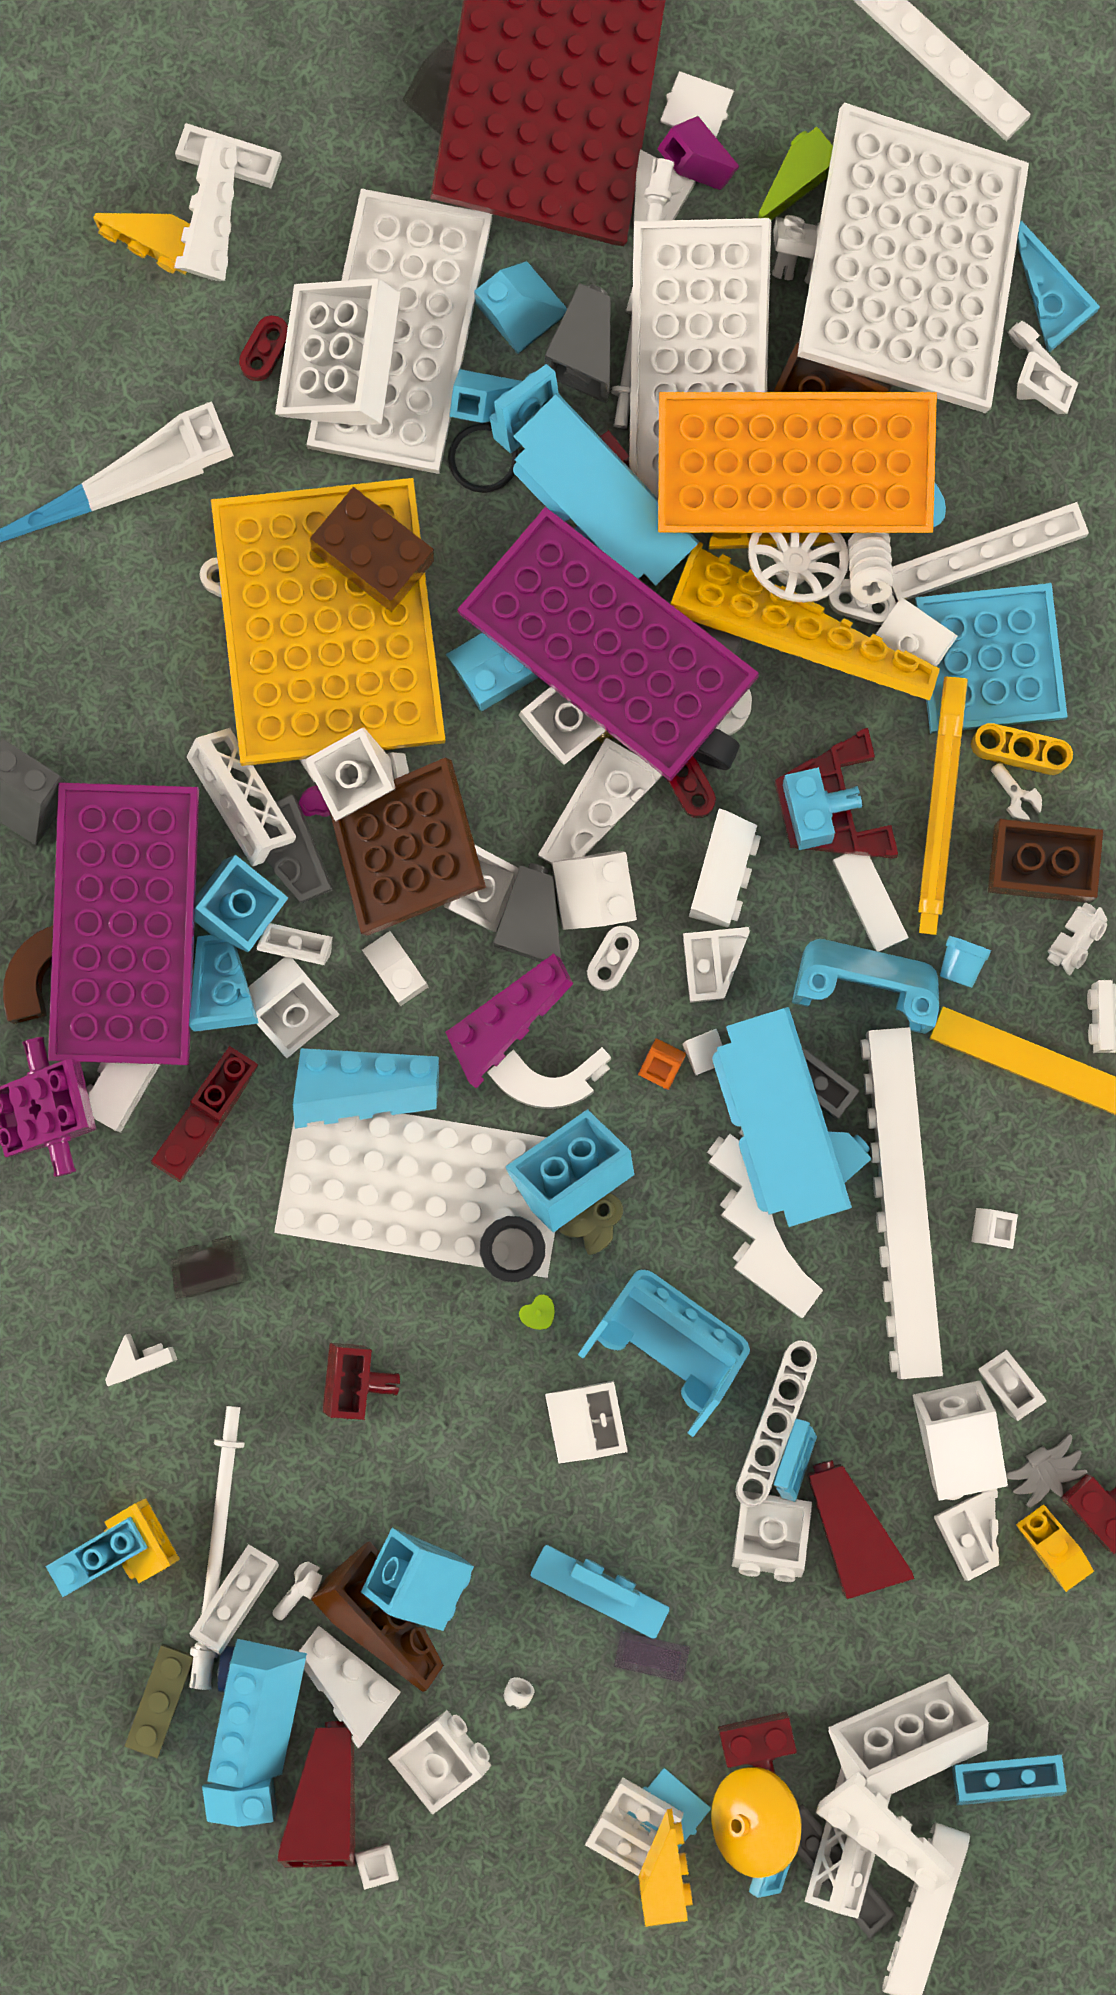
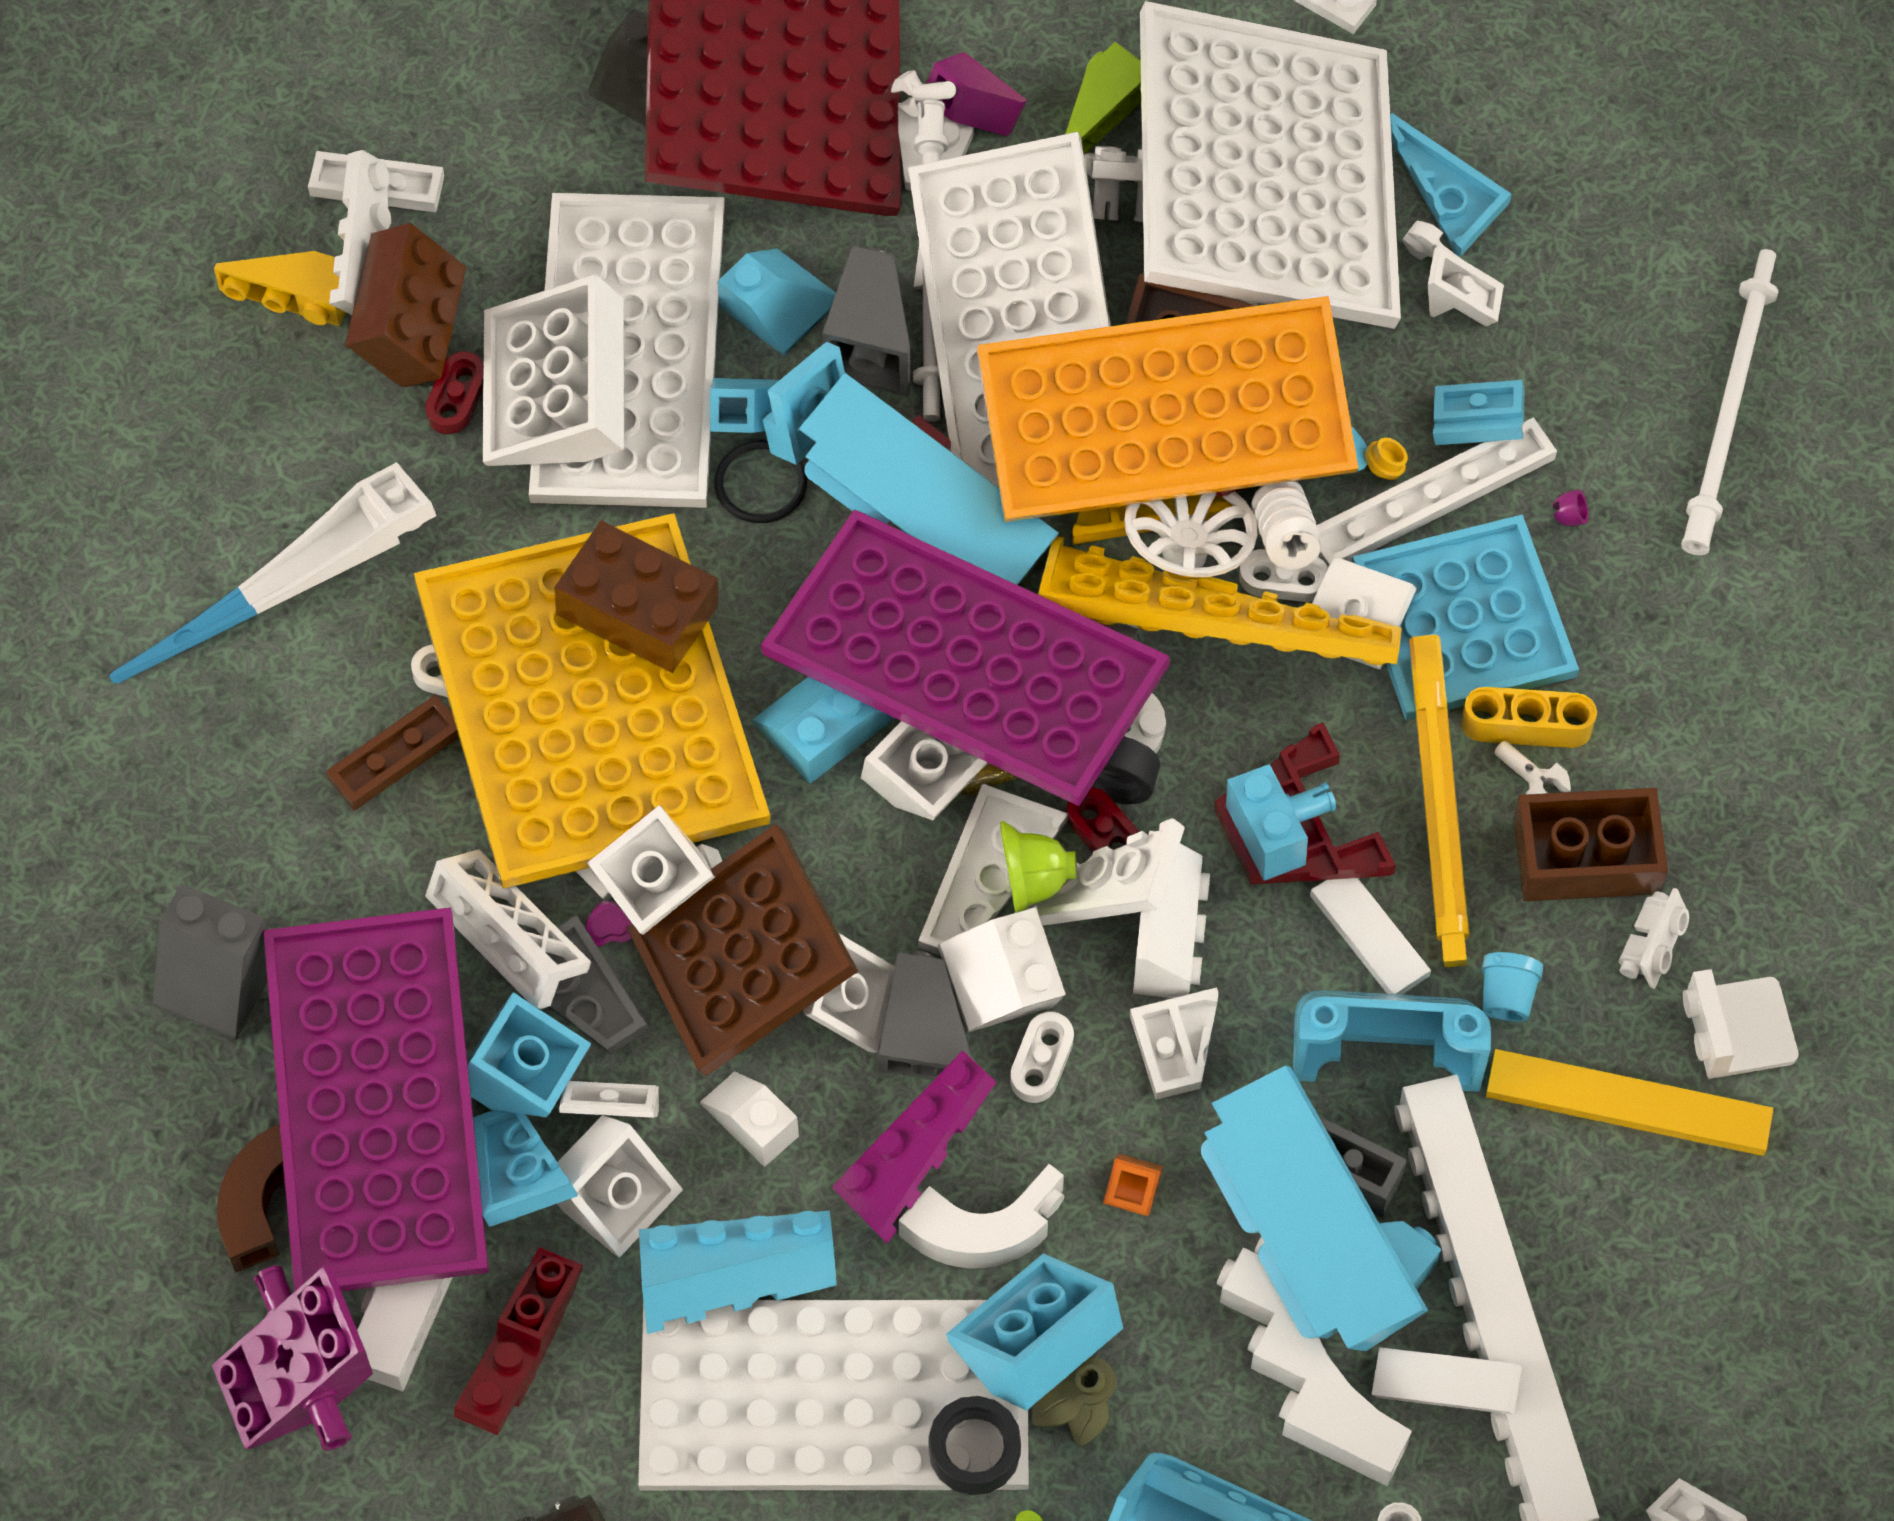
camera: 15 degrees left, 20 degrees down
(178, 640) = (393, 753): none -> reddish brown plate
(234, 273) = (405, 305): none -> reddish brown brick
(630, 818) = (1035, 866): none -> lime hat
(656, 150) = (912, 86): none -> white bar
(682, 841) = (1117, 879): none -> white wing
(697, 98) = (954, 35): white piece -> none
(701, 1051) = (1182, 1155): white slope -> none
(855, 1255) = (1446, 1380): none -> white tile
(958, 517) = (1386, 458): none -> yellow plate
(994, 1228) = (1626, 1322): white slope -> none
(1036, 491) = (1478, 412): none -> medium azure plate
(1091, 581) = (1571, 508): none -> magenta hinge

